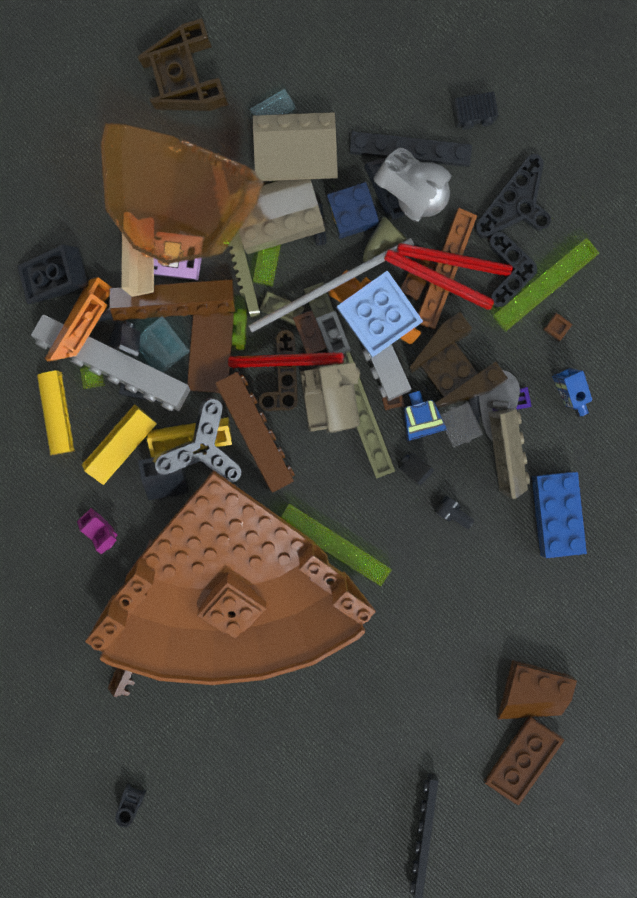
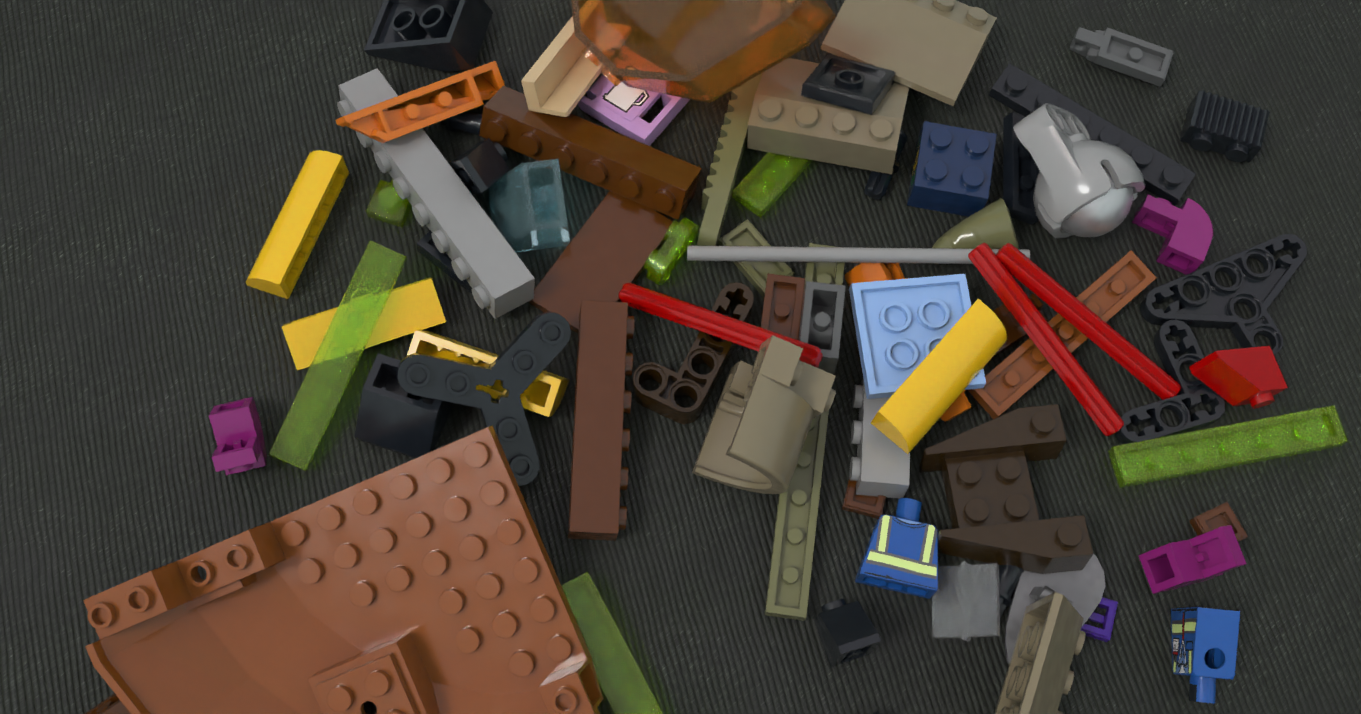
camera: 25 degrees right, 20 degrees down
(118, 468) = (338, 356): none -> clear neon green plate
(281, 197) = (848, 84): none -> black tile
(401, 331) = (941, 377): none -> yellow brick
(407, 93) = (1123, 54): none -> dark grey hinge
(480, 180) = (1185, 228): none -> magenta brick
(539, 247) = (1242, 375): none -> red slope
(551, 352) = (1192, 560): none -> magenta brick

